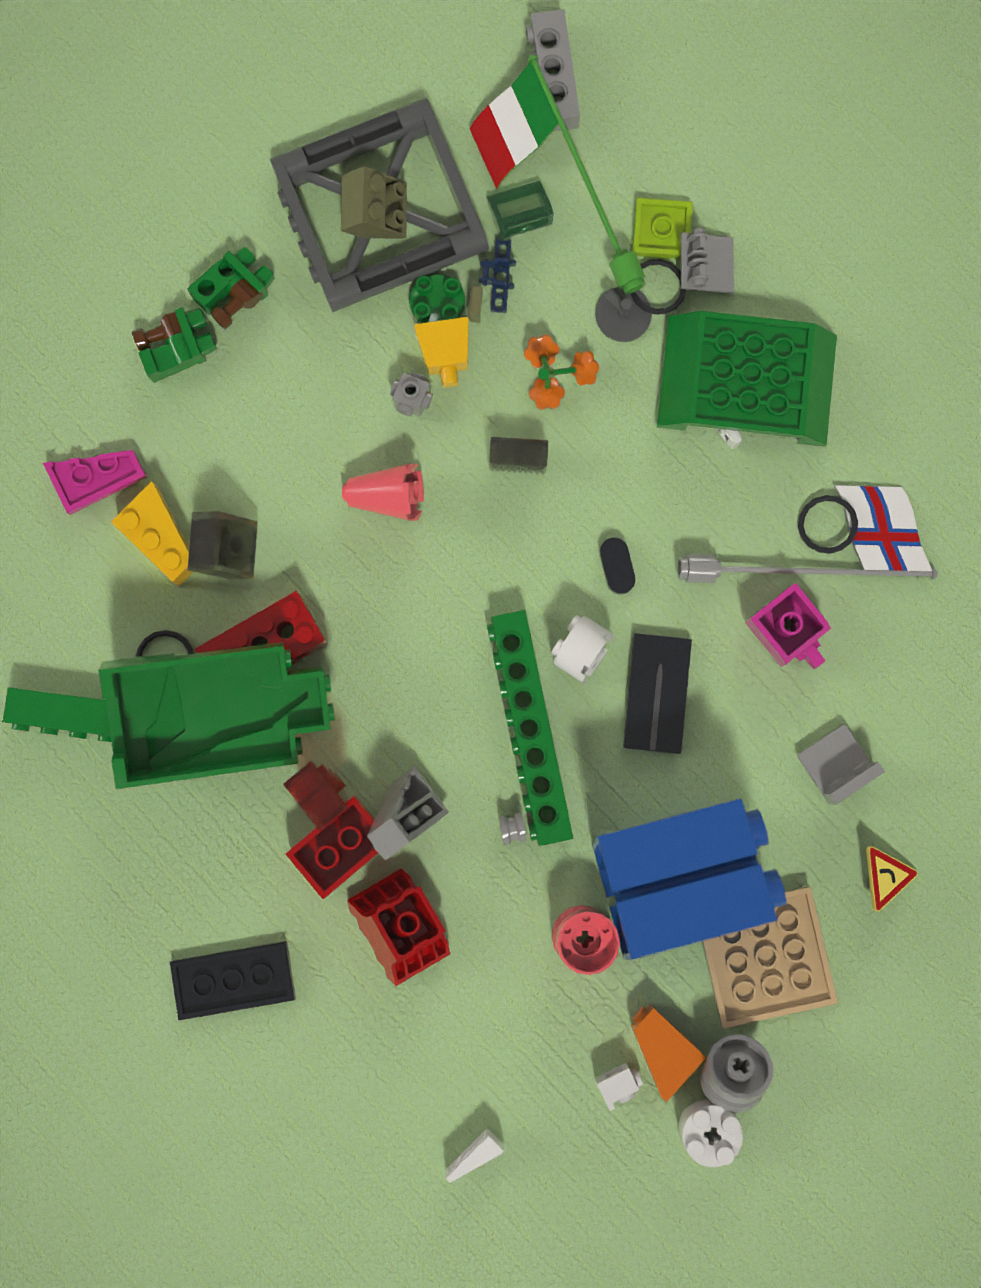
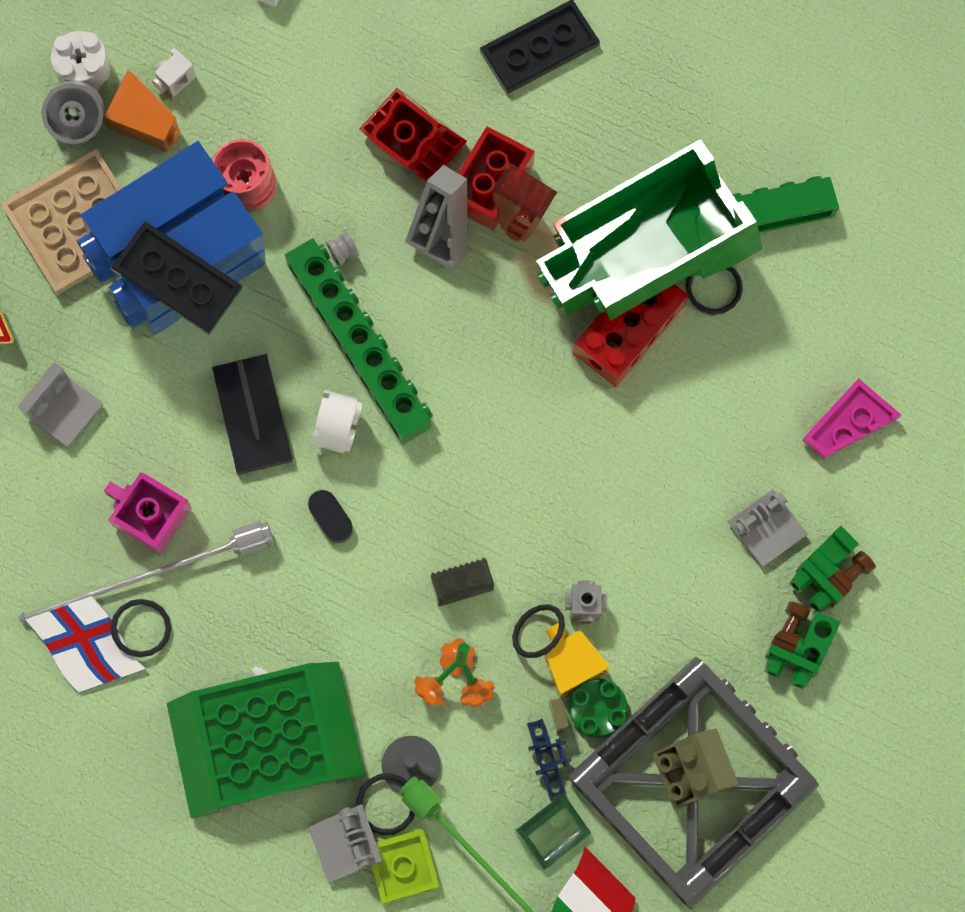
camera: 160 degrees right, 10 degrees down
(155, 533) = (767, 386): yellow wedge -> none
(214, 406) = (768, 527): none -> light grey hinge
(222, 545) = (702, 393): clear smoke brick -> none
(387, 492) = (570, 501): coral cone -> none
(446, 370) = (524, 617): none -> black piece
(700, 818) = (176, 277): none -> black tile

